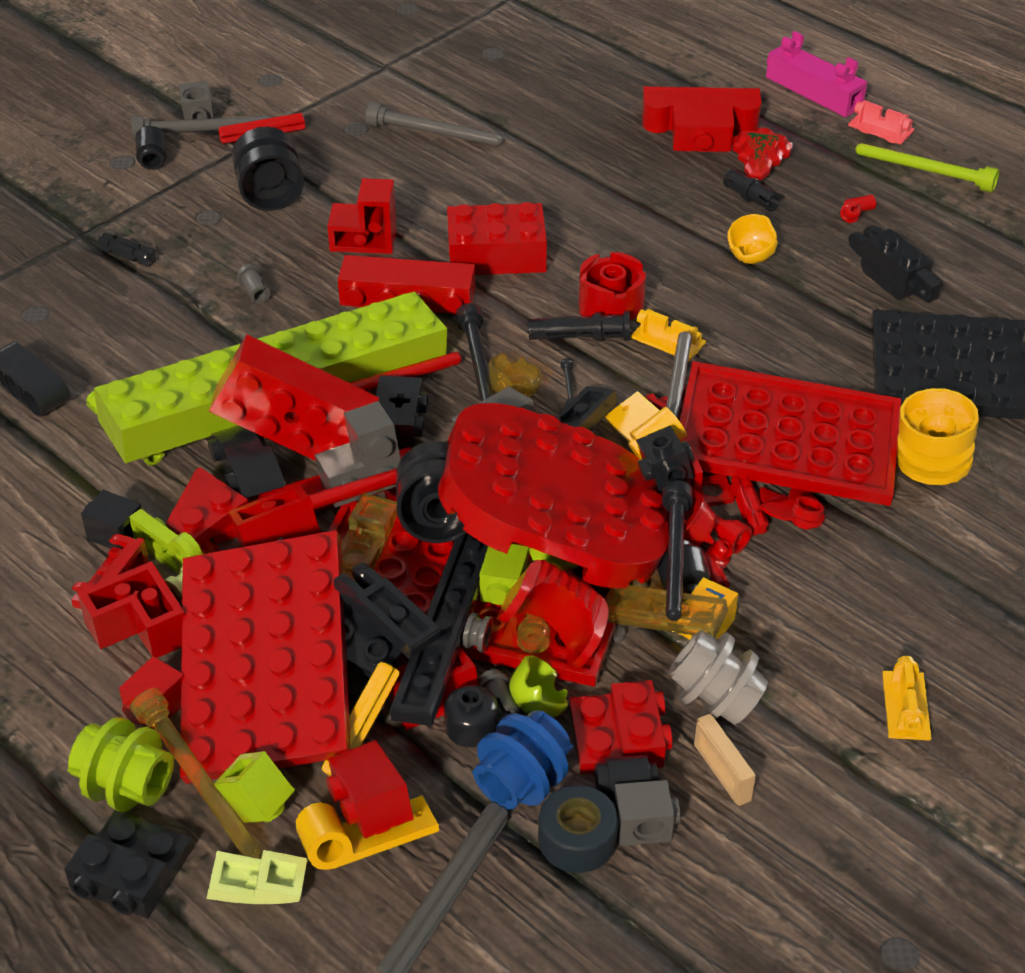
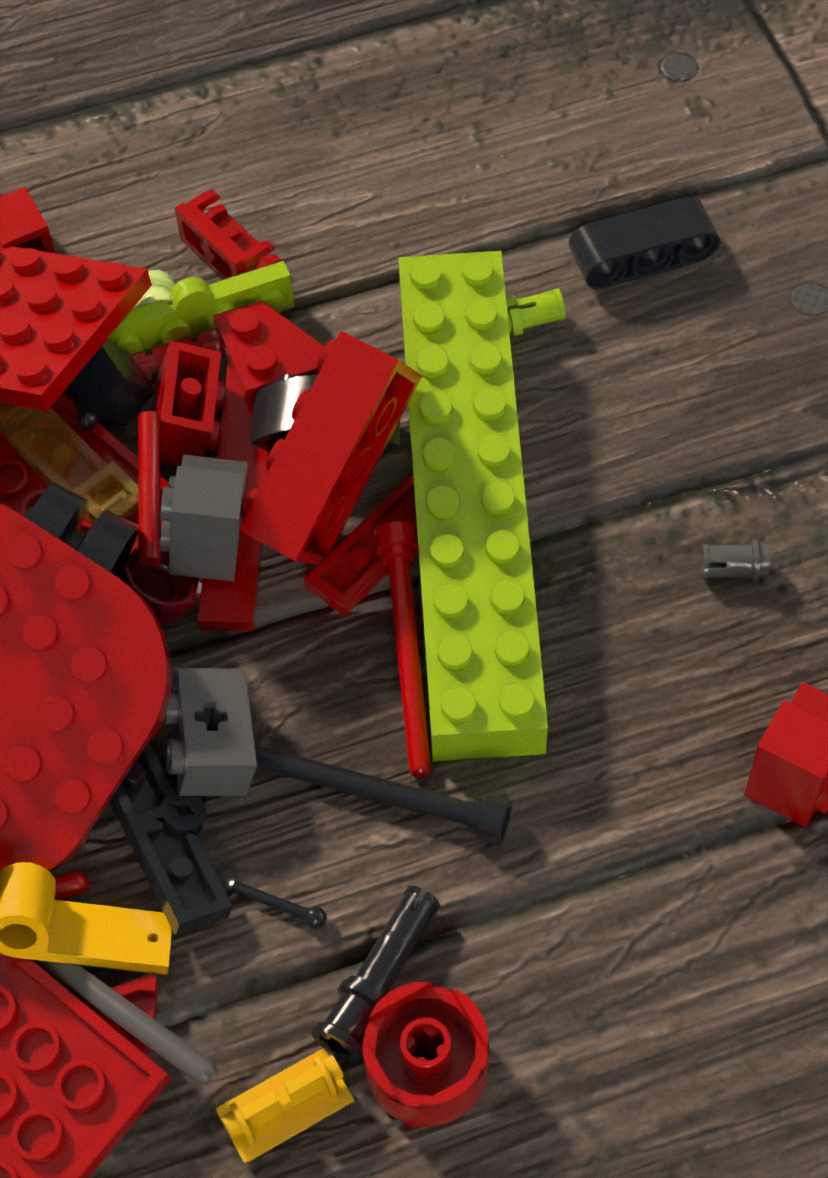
camera: 120 degrees right, 15 degrees up
(108, 516) = (315, 261): black brick -> none
(134, 605) = (140, 234): red brick -> none
(376, 279) = (600, 750): red brick -> none
(404, 403) = (323, 629): black brick -> none
(498, 237) = (668, 944): red piece -> none
(519, 375) = (306, 807): clear yellow hair -> none

